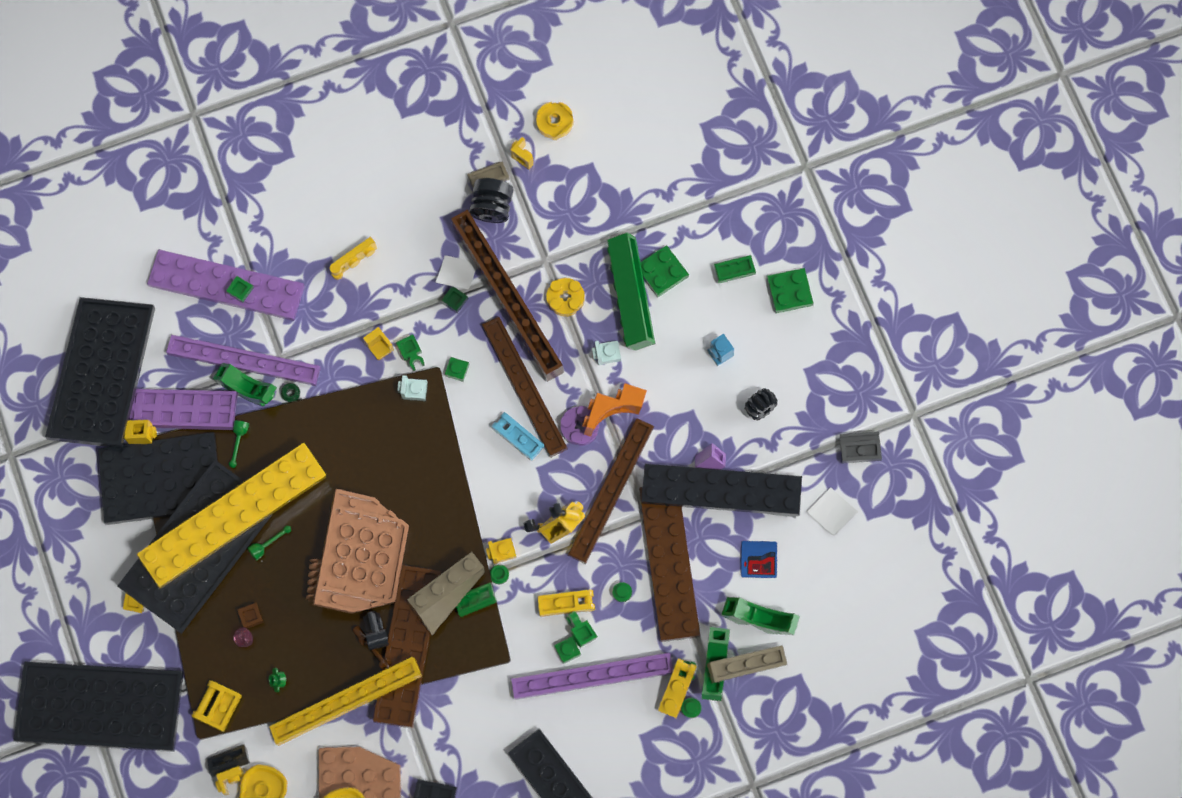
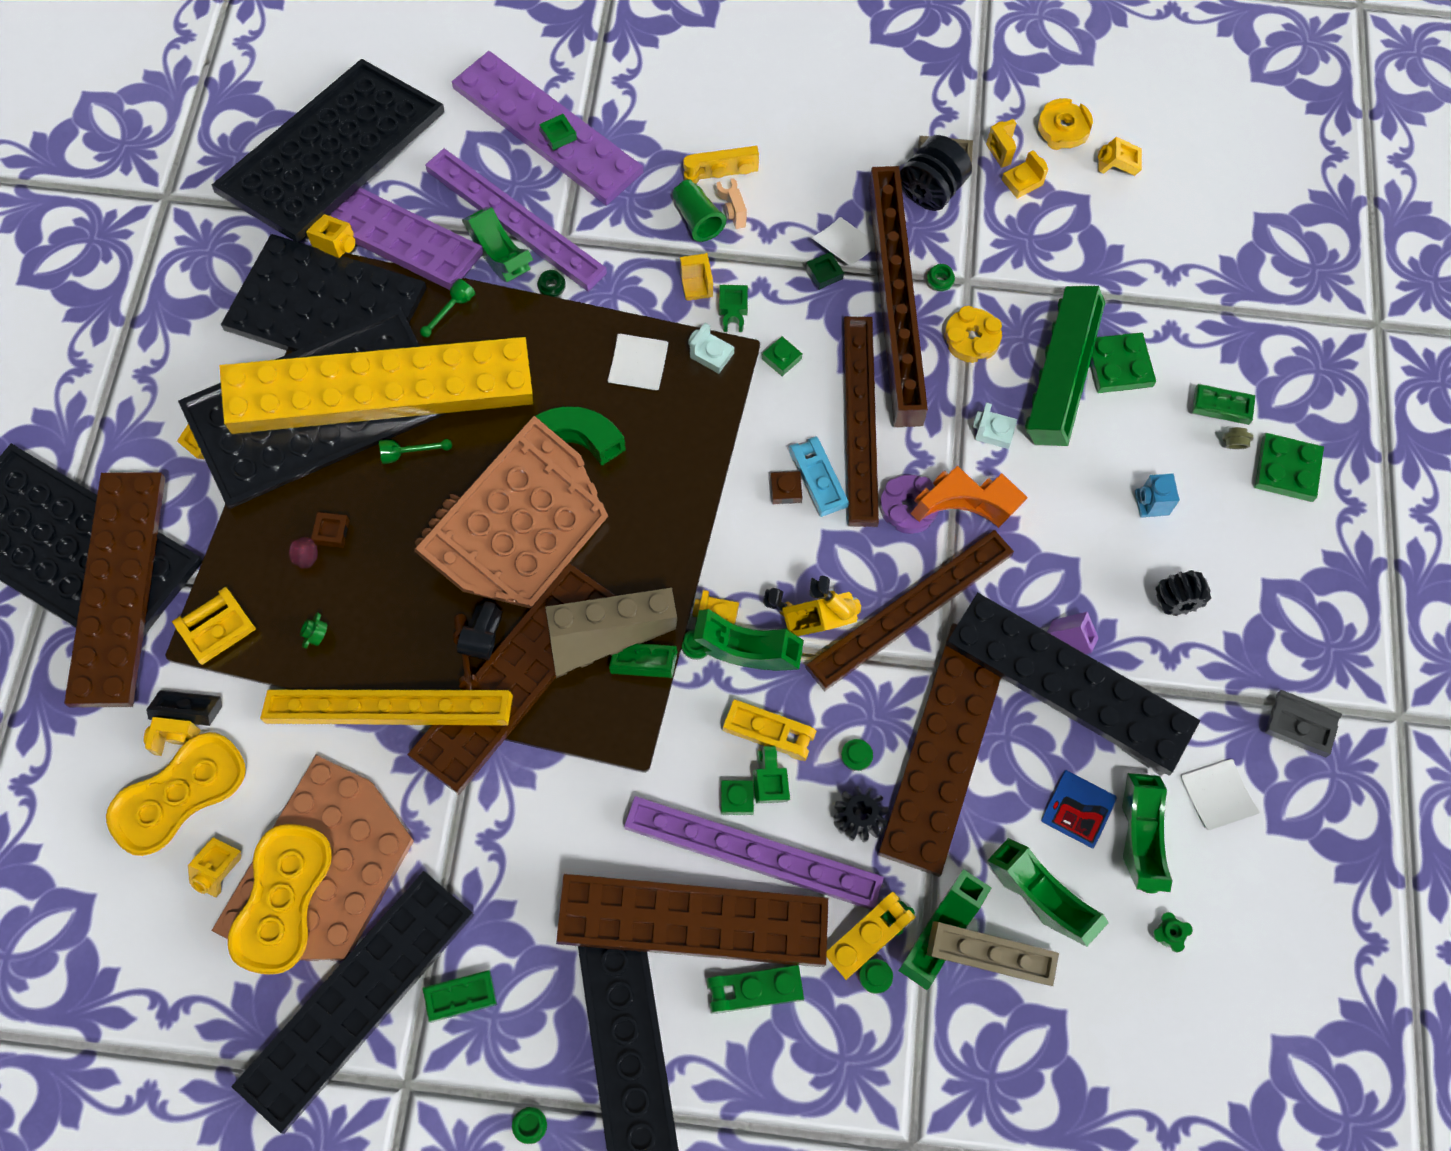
camera: 20 degrees right, 5 degrees down
(146, 713) = (115, 591): none -> reddish brown plate
(356, 298) = (699, 212): none -> green plant
(366, 477) = (586, 429): none -> green arch
(373, 418) = (638, 362): none -> white sticker
(377, 283) = (735, 208): none -> light nougat plate
(502, 452) = (786, 487): none -> reddish brown plate
(528, 263) = (940, 271): none -> green plate
(530, 561) = (747, 647): none -> green arch
(547, 170) = (1026, 176): none -> yellow bracket
(579, 729) = (693, 920): none -> reddish brown plate
(600, 127) = (1120, 155): none -> yellow bracket
(631, 748) = (756, 989): none -> green plate
(639, 631) = (868, 806): none -> black gear
(752, 288) = (1238, 438): none -> olive plate
(799, 555) = (1145, 842): none -> green arch
(842, 607) = (1163, 935): none -> green plate

